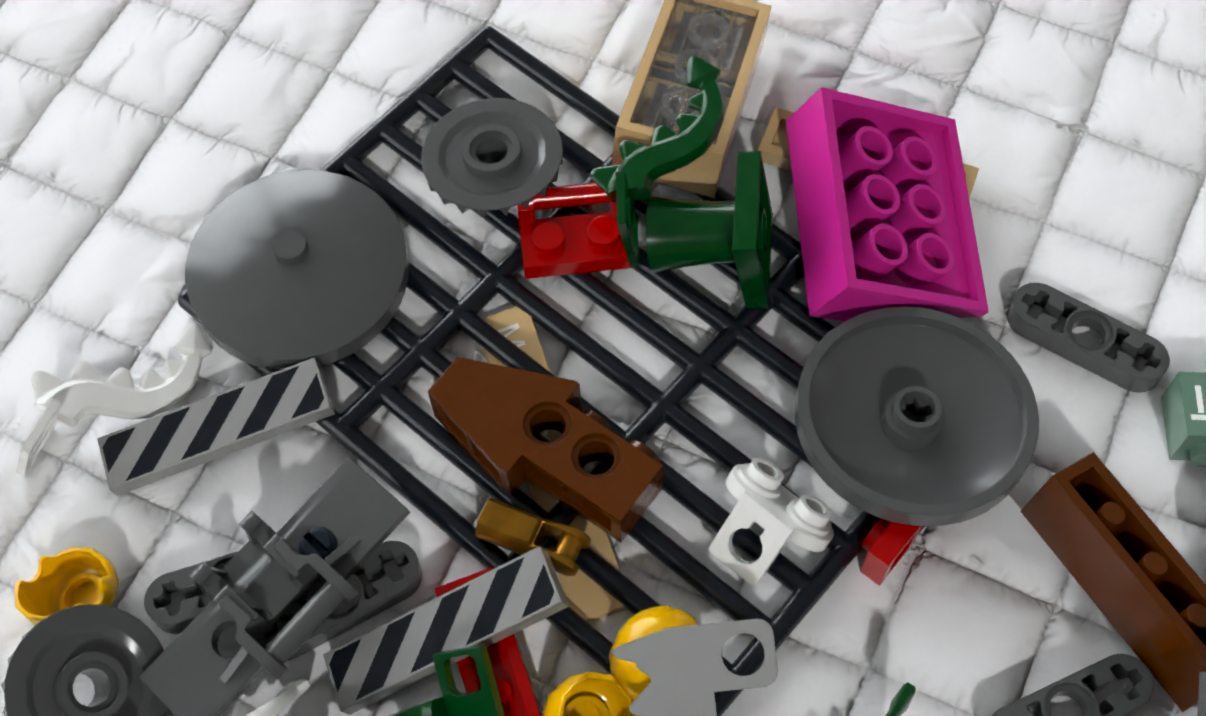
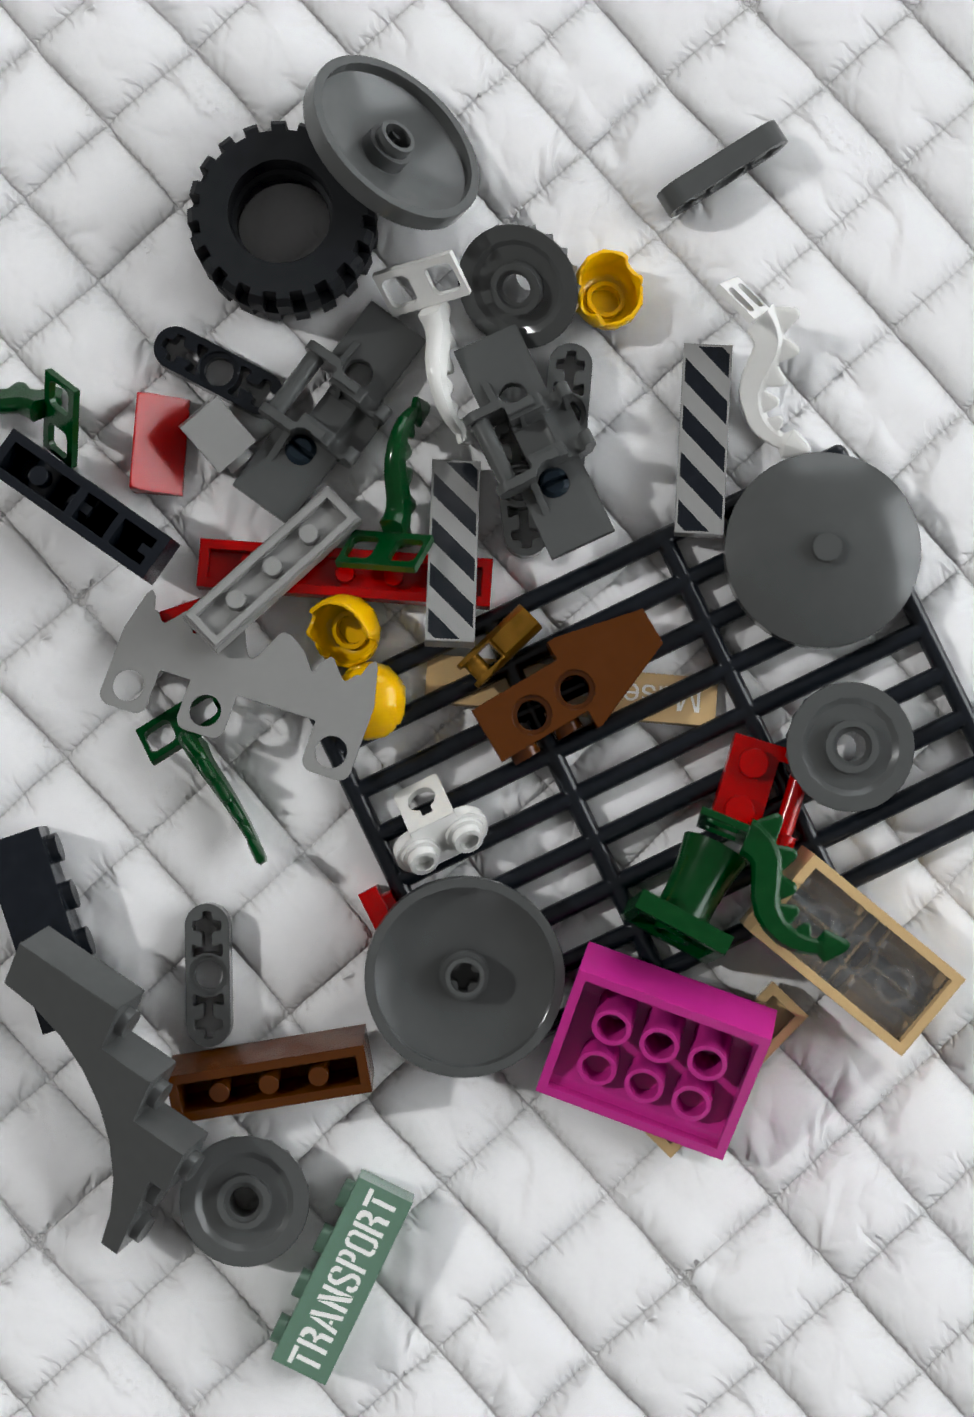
camera: 110 degrees right, 25 degrees up
(1116, 370) = (448, 1173): dark grey beam -> none

